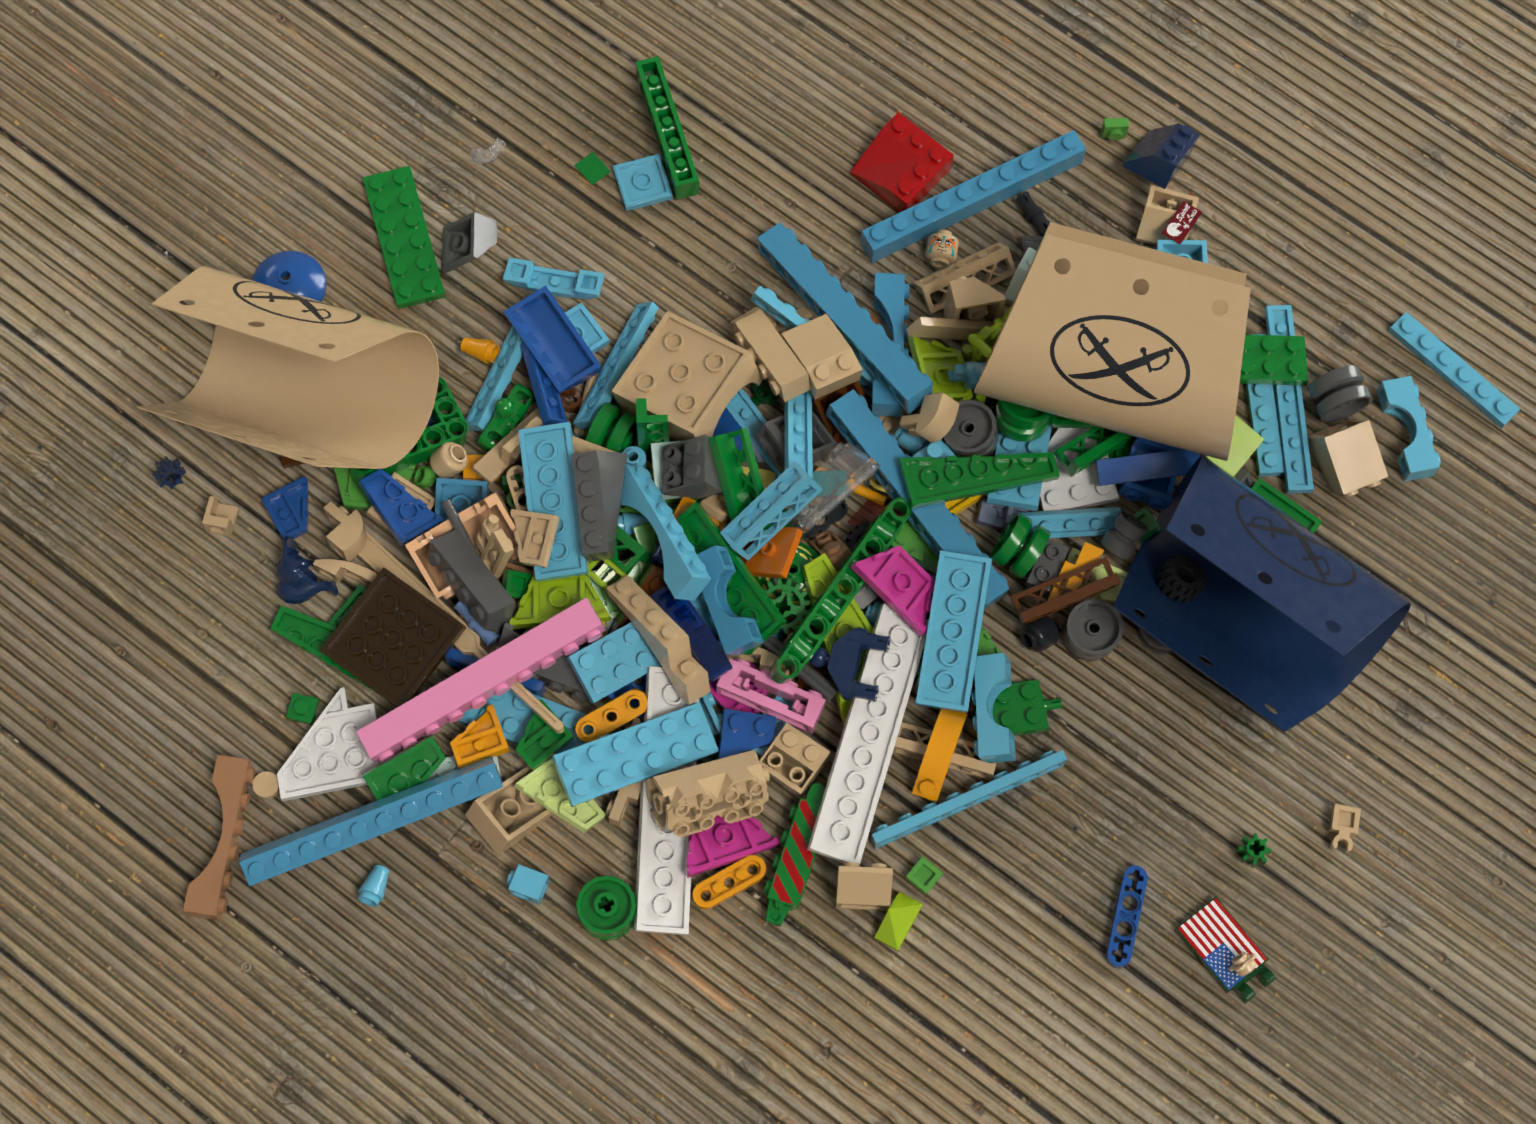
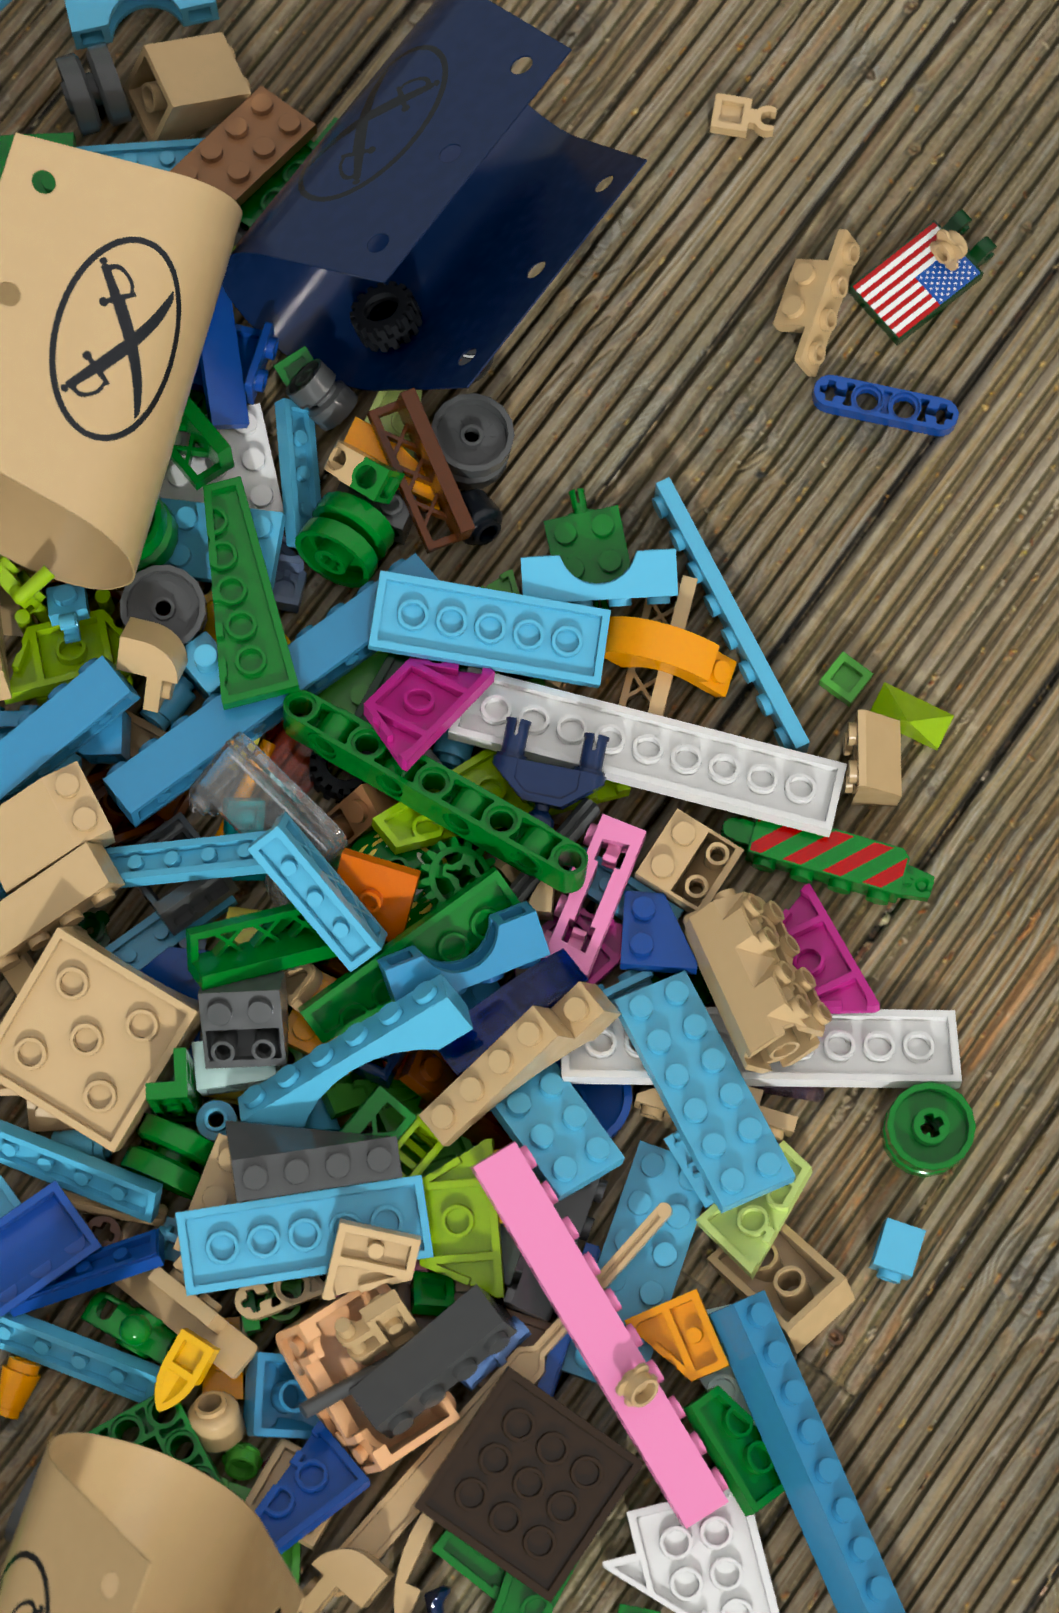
camera: 90 degrees left, 5 degrees up
(374, 886) = (913, 1487): medium azure cone -> none
(443, 697) = (638, 1386): none -> tan plate
(481, 438) = (183, 1368): none -> yellow plate
(541, 741) = (680, 1243): green wing -> none
(618, 705) = (623, 1121): light orange plate -> none
(738, 873) = (871, 937): light orange plate -> none
(1061, 552) = (363, 472): none -> green leg
(1204, 871) = (814, 300): none -> tan bracket
(1259, 845) = (782, 223): green gear -> none
(1295, 485) = (248, 146): none -> medium nougat plate

